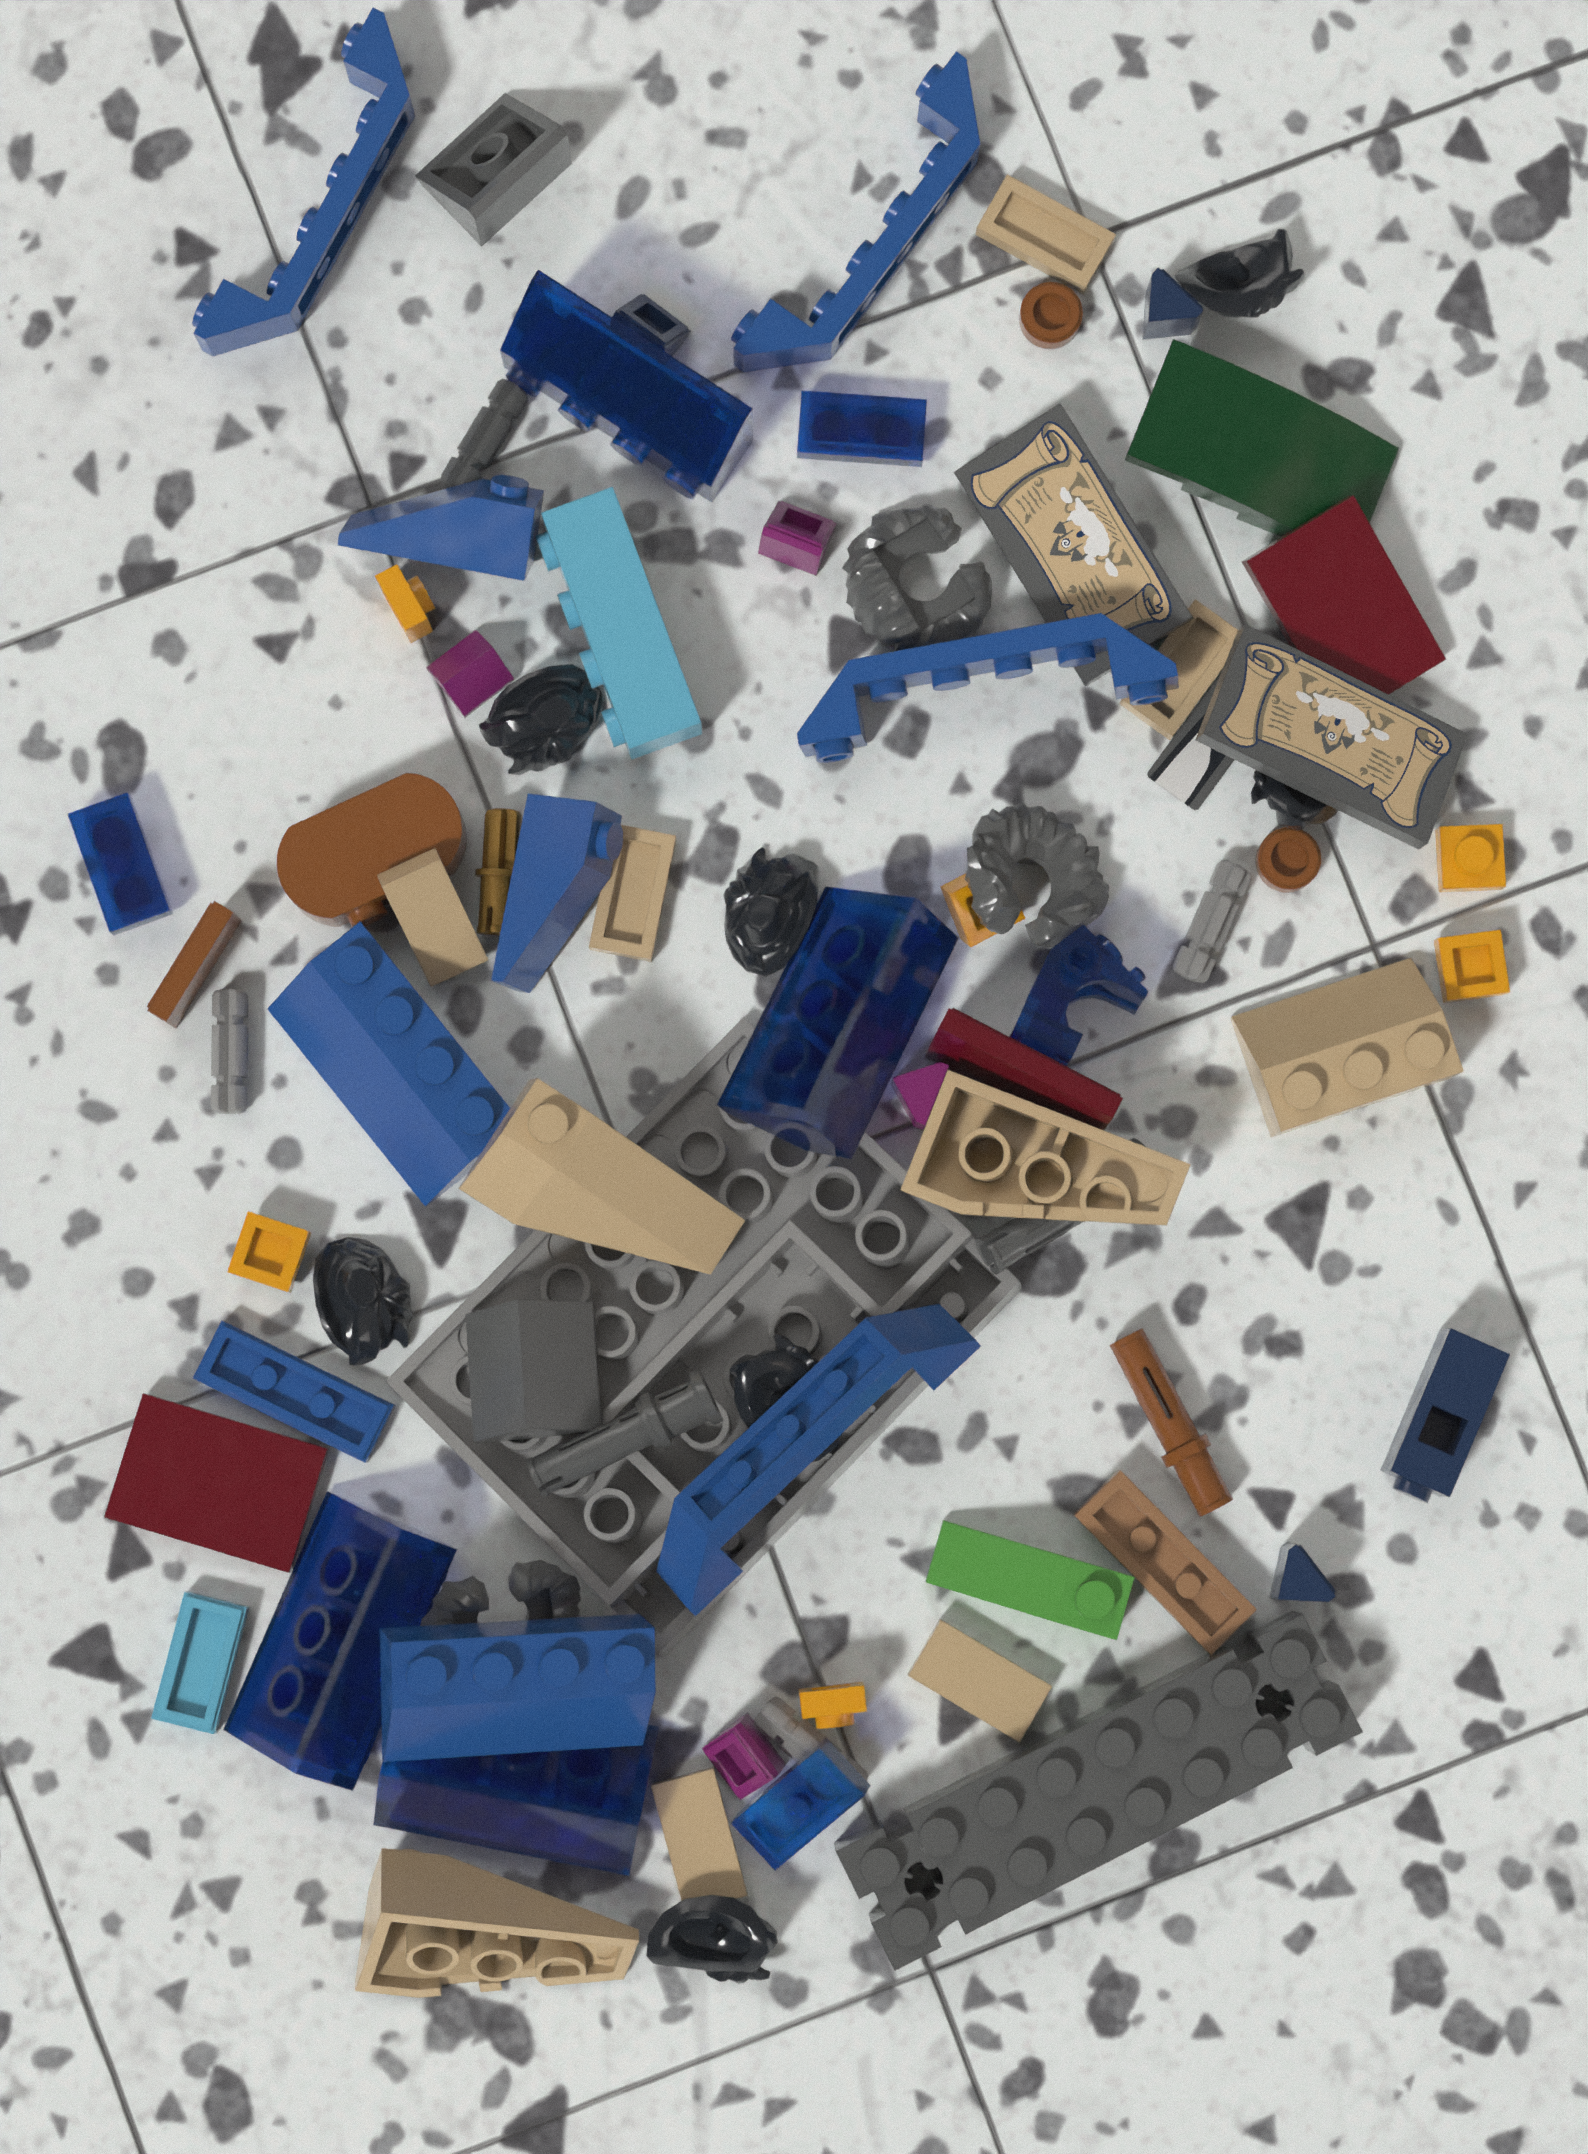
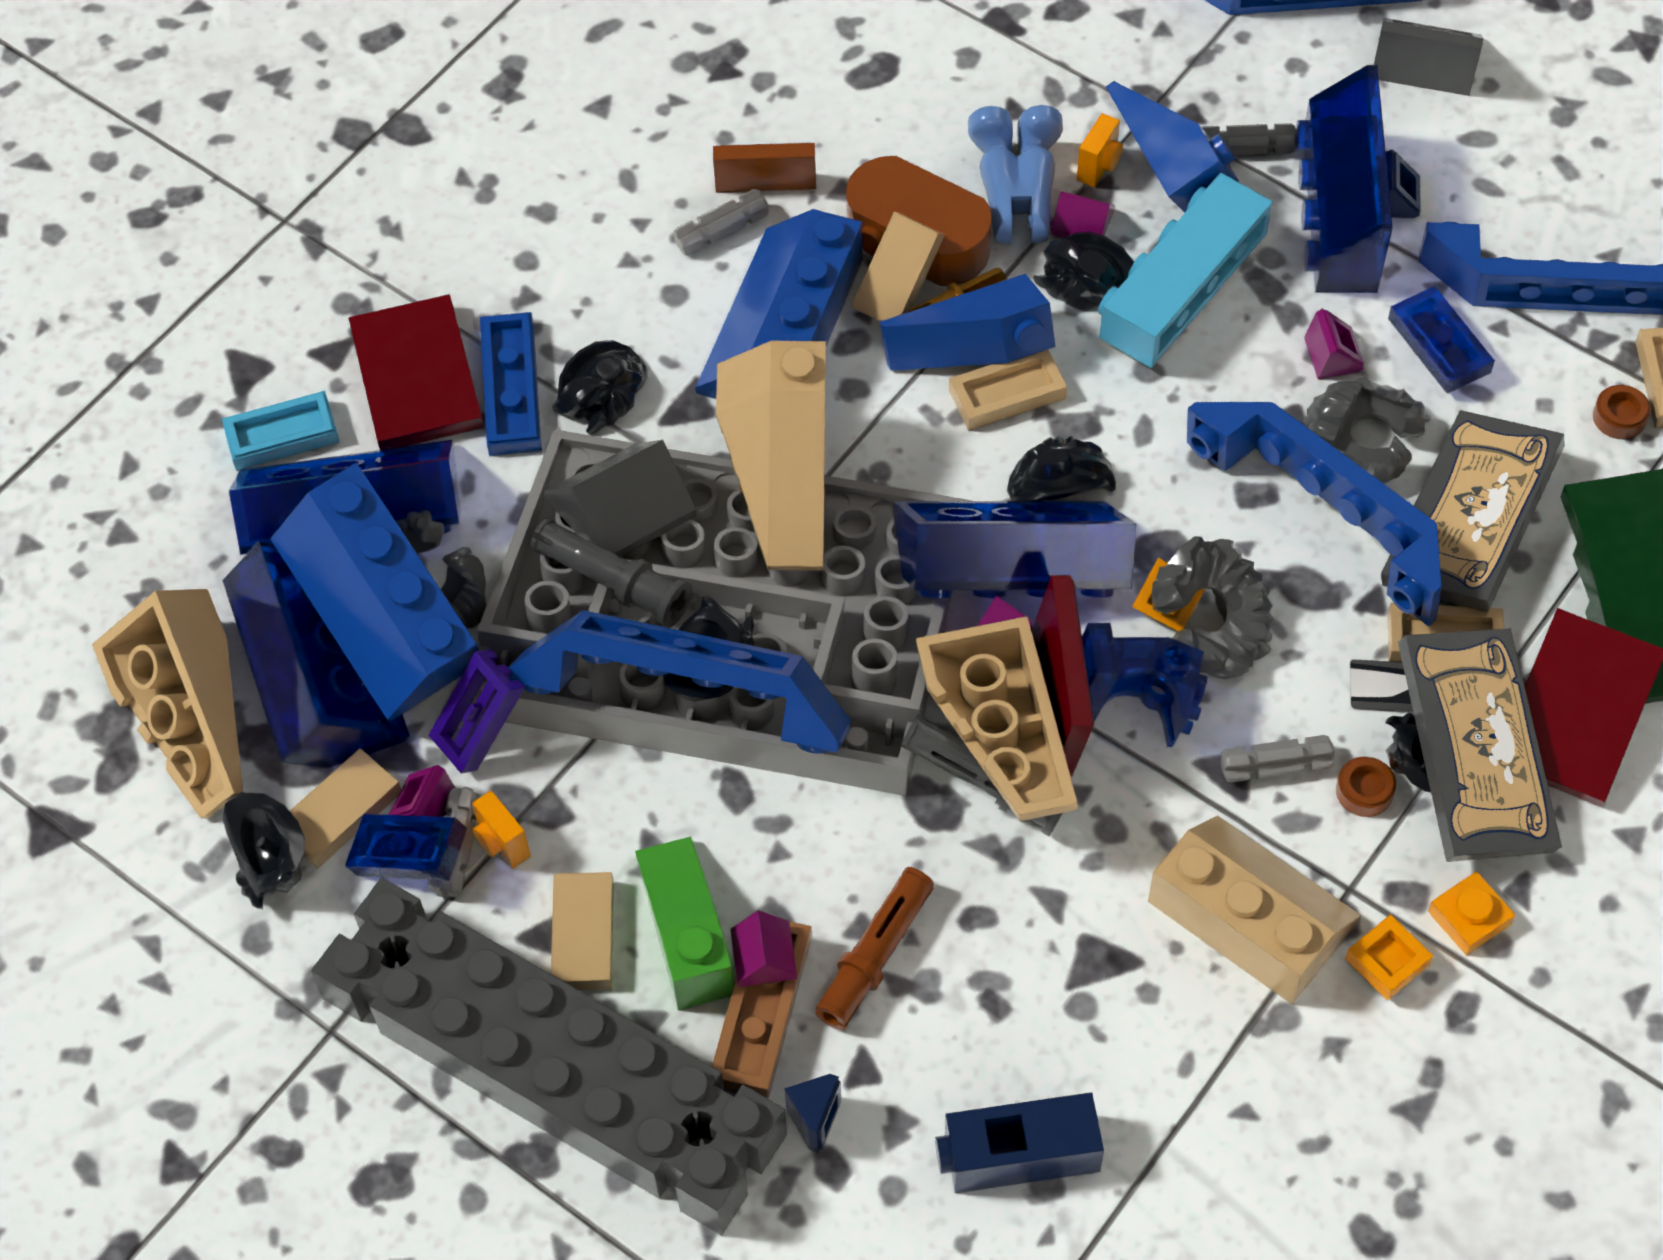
camera: 65 degrees right, 25 degrees down
(120, 863) = (802, 97): clear blue plate -> none
(269, 1252) = (598, 312): light orange plate -> none
(387, 711) = (1021, 181): none -> medium blue piece
(694, 1628) = (482, 719): none -> dark purple tile
(1125, 1534) = (763, 950): none -> magenta slope

